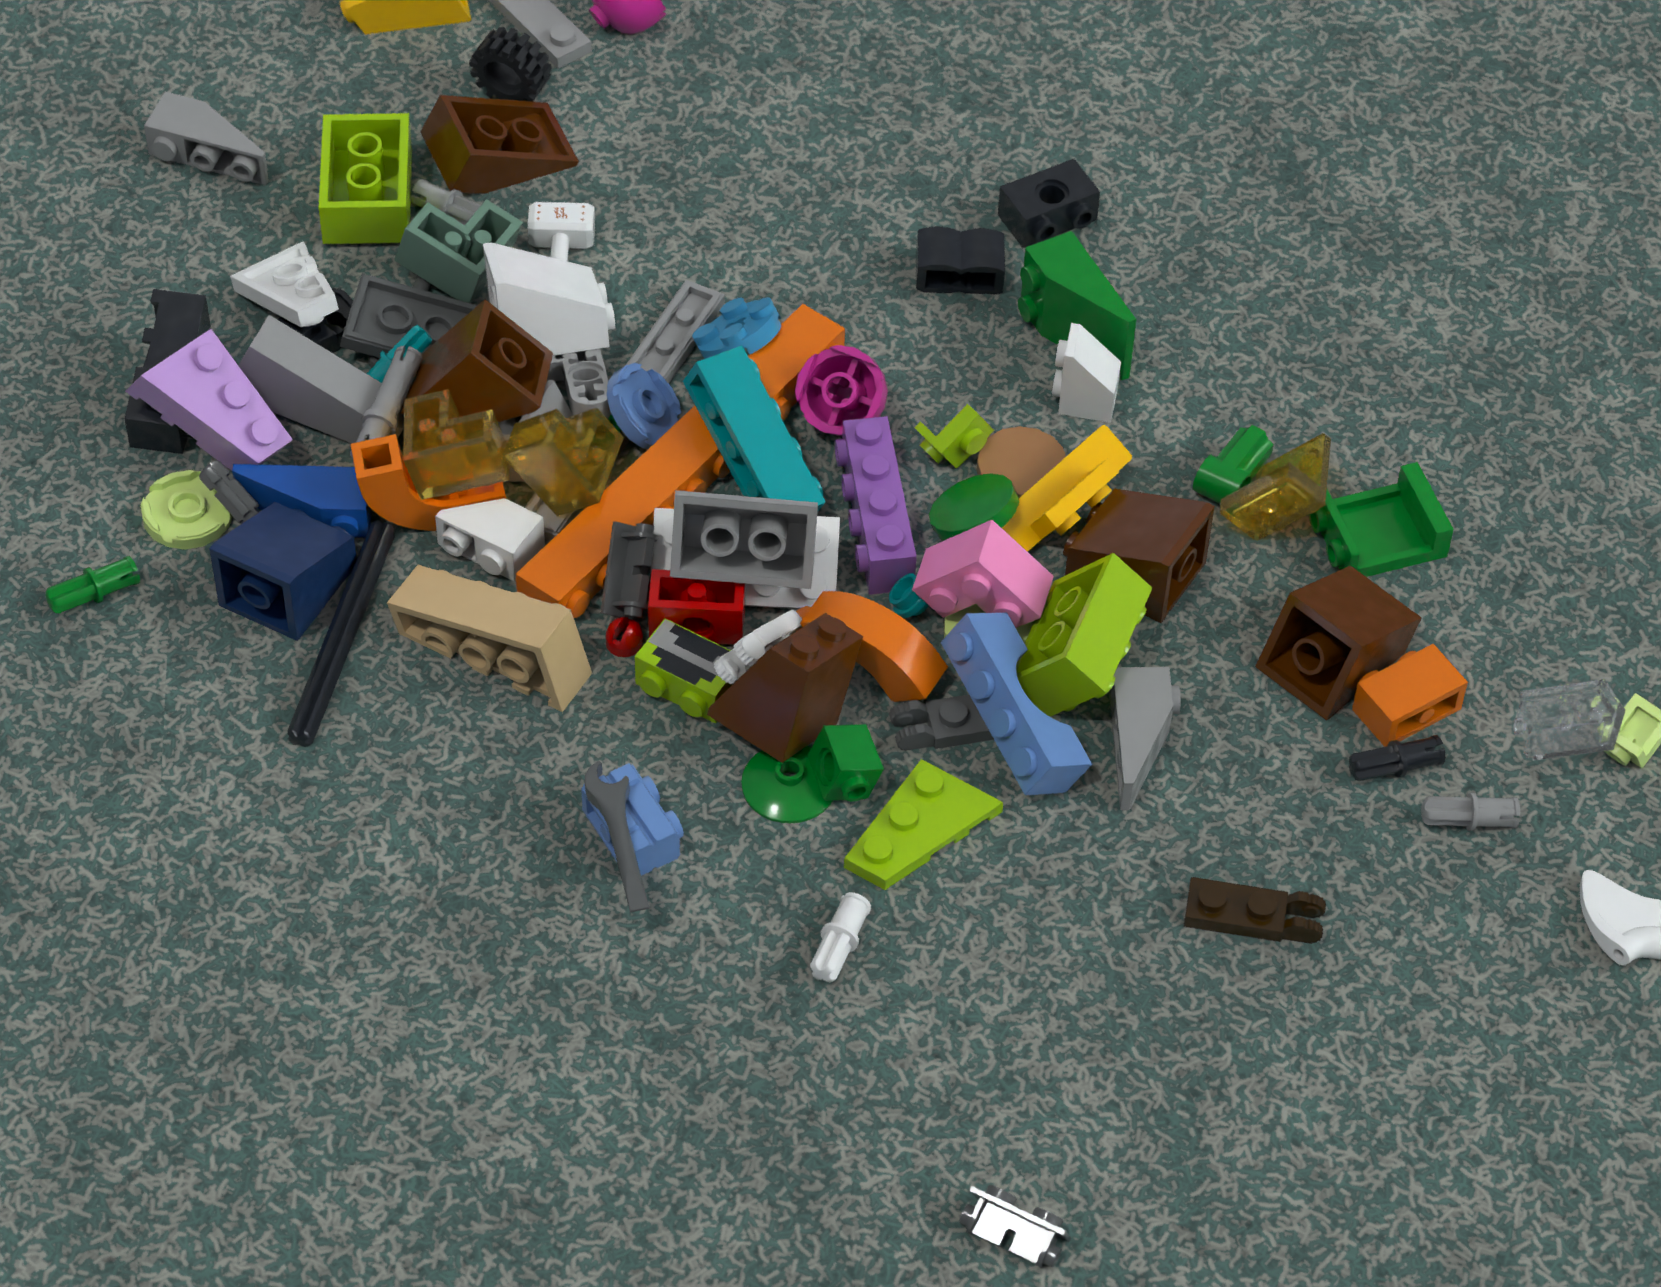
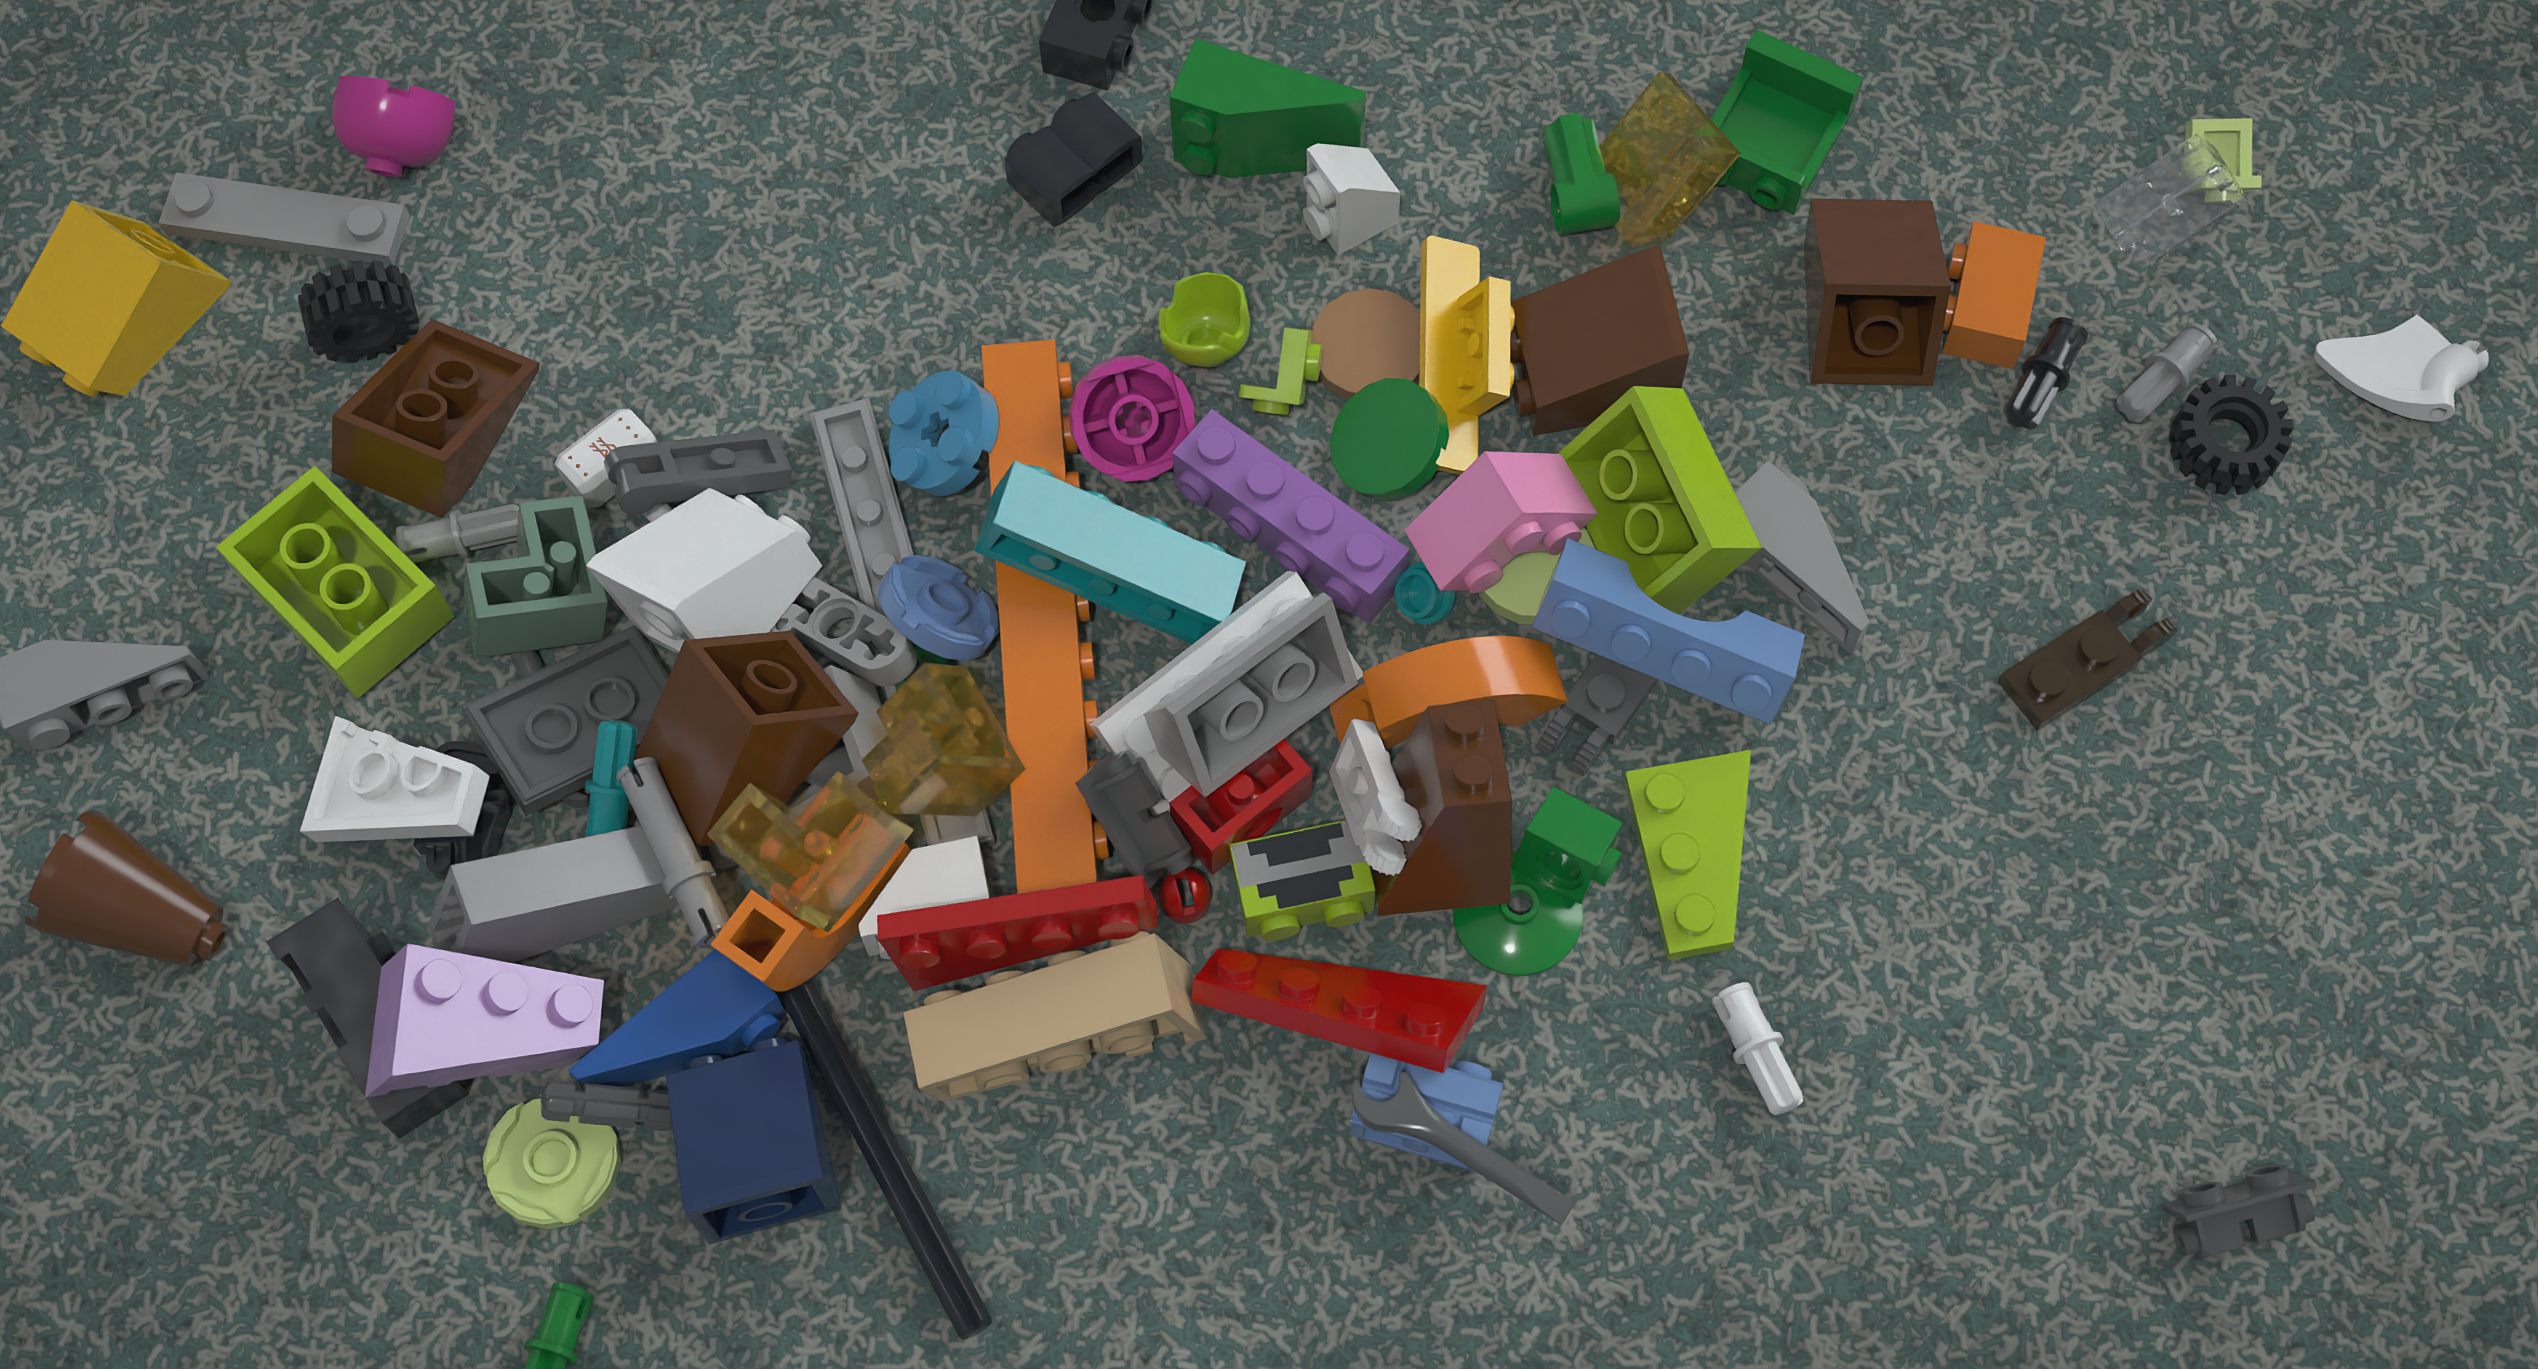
camera: 40 degrees left, 15 degrees up
(117, 235) = (123, 898): none -> reddish brown cone
(504, 559) = (999, 932): none -> red wing
(610, 264) = (687, 467): none -> dark grey plate
(644, 743) = (1357, 1007): none -> red wing
(941, 385) = (1205, 320): none -> lime hair
(1466, 890) = (2241, 405): none -> black tyre

